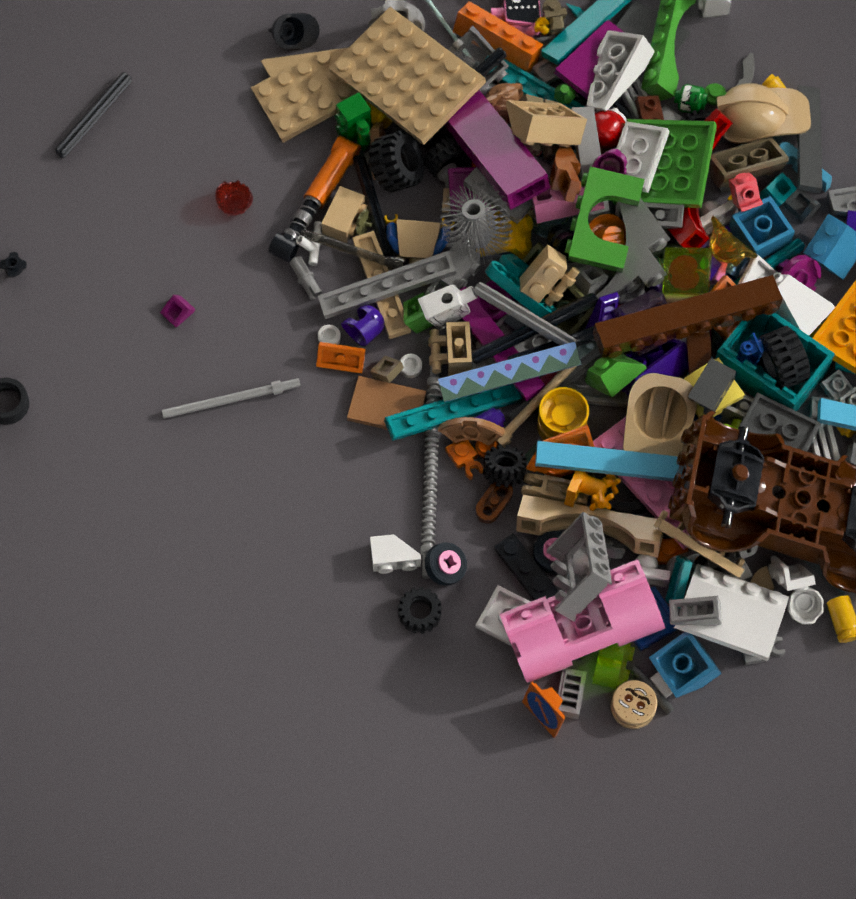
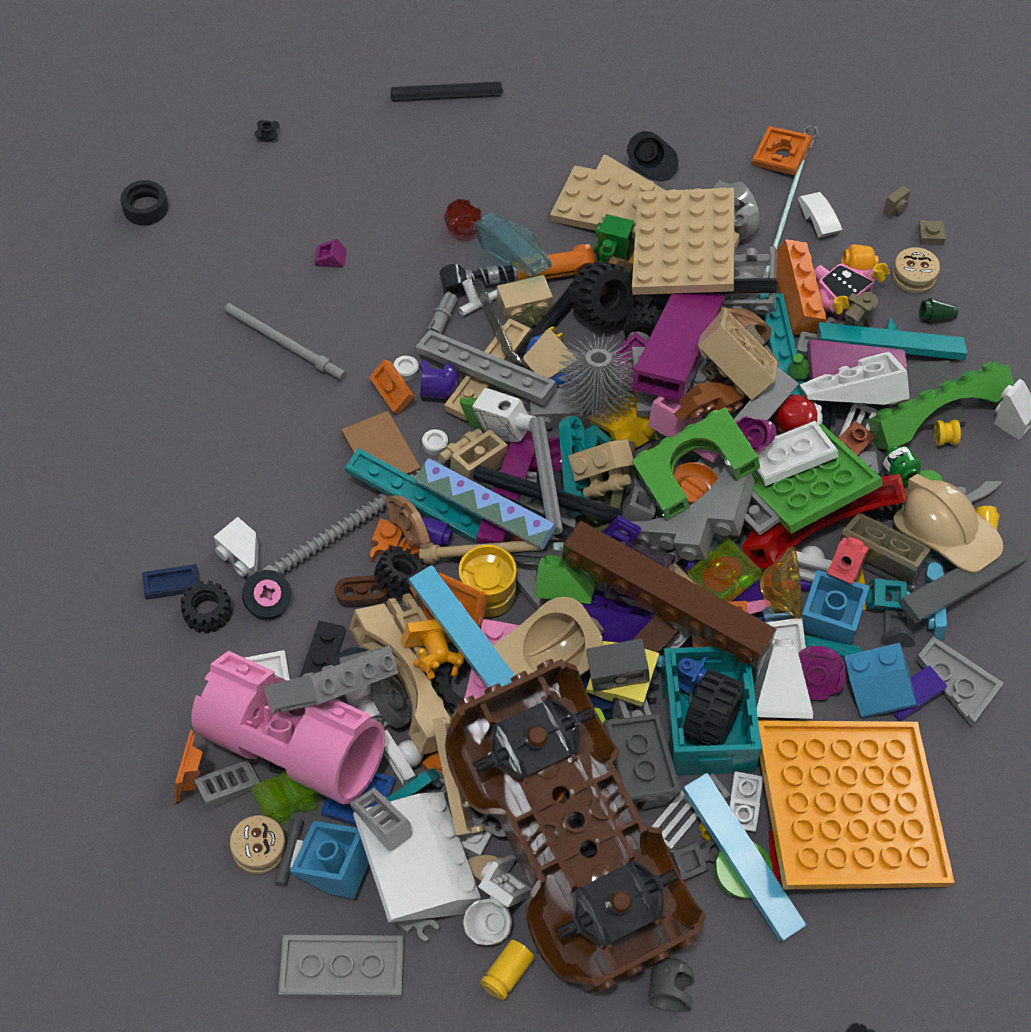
camera: 50 degrees right, 10 degrees down
(295, 183) = (512, 243): none -> clear light blue wedge
(375, 619) = (169, 581): none -> dark blue tile
(387, 369) = (412, 426): dark tan plate -> none
(689, 51) = (947, 432): none -> yellow wheel
(758, 715) = (341, 966): none -> light grey tile

